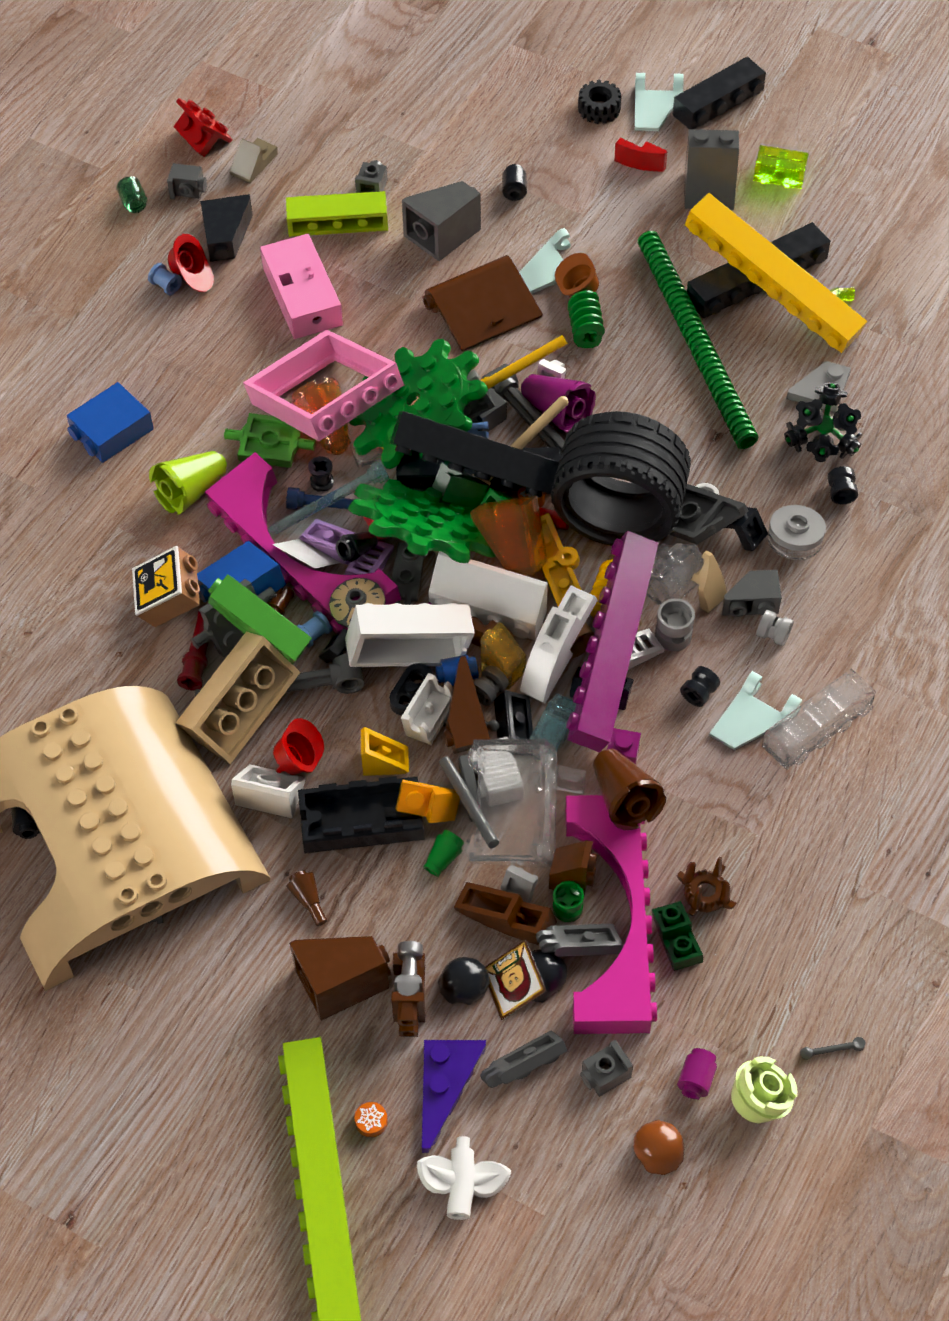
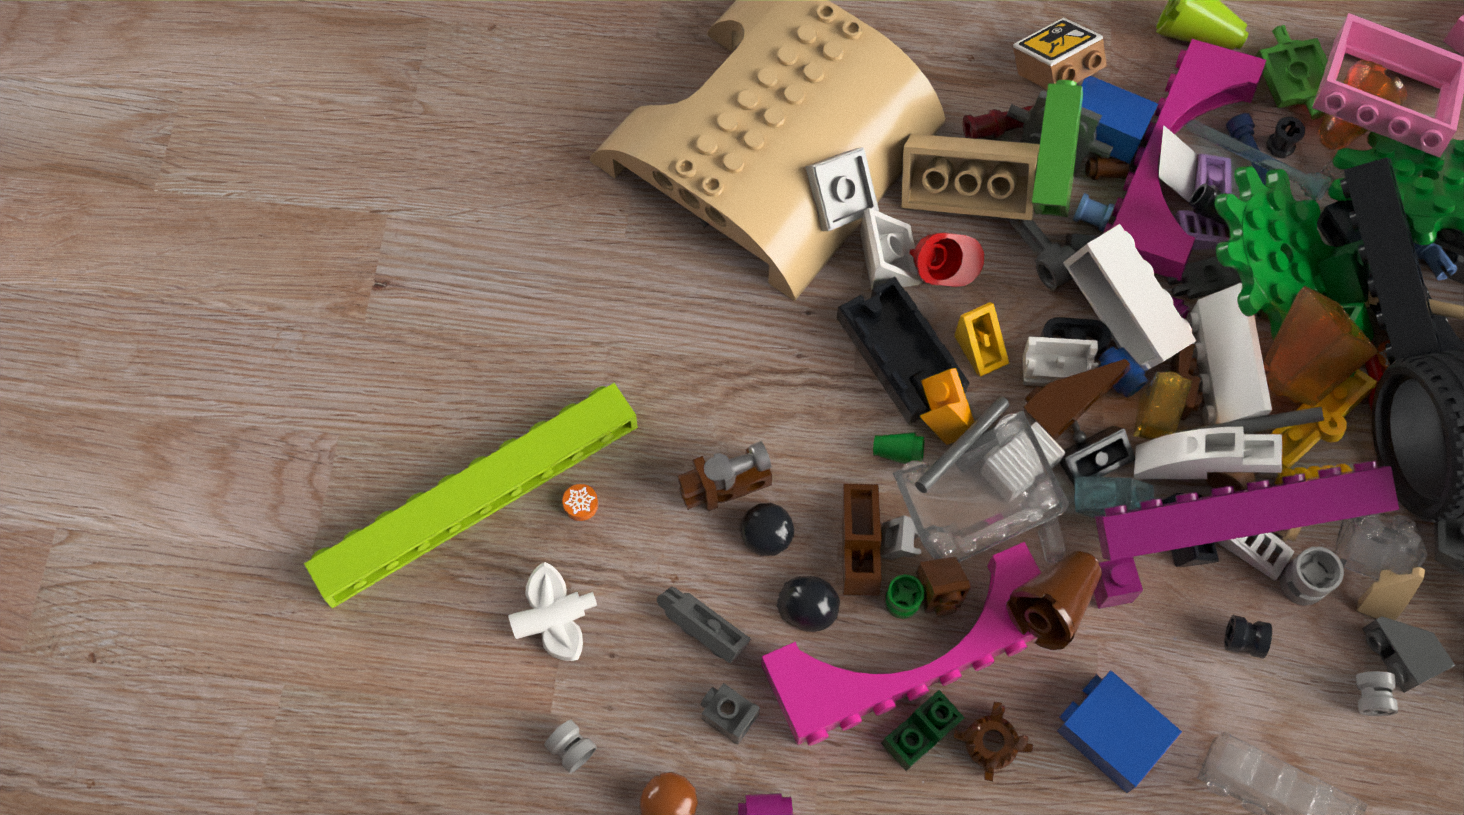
camera: 65 degrees right, 10 degrees up
(204, 790) = (842, 188): none -> tile
(304, 888) = (793, 335): reddish brown cone -> none
(340, 971) = (710, 401): reddish brown slope -> none
(343, 607) = (1154, 243): tan dish -> none
(445, 1073) = (659, 552): dark purple wing -> none
(489, 684) = (1122, 410): dark grey wheel -> none
(514, 980) = (786, 576): sticker -> none
(550, 597) = (1271, 421): none -> dark grey bar
(580, 940) = (862, 626): dark grey hinge -> none
(582, 1203) = (570, 746): none -> light grey wheel
(733, 802) = (1117, 730): none -> blue brick
(748, 716) = (1243, 708): light aqua flag -> none

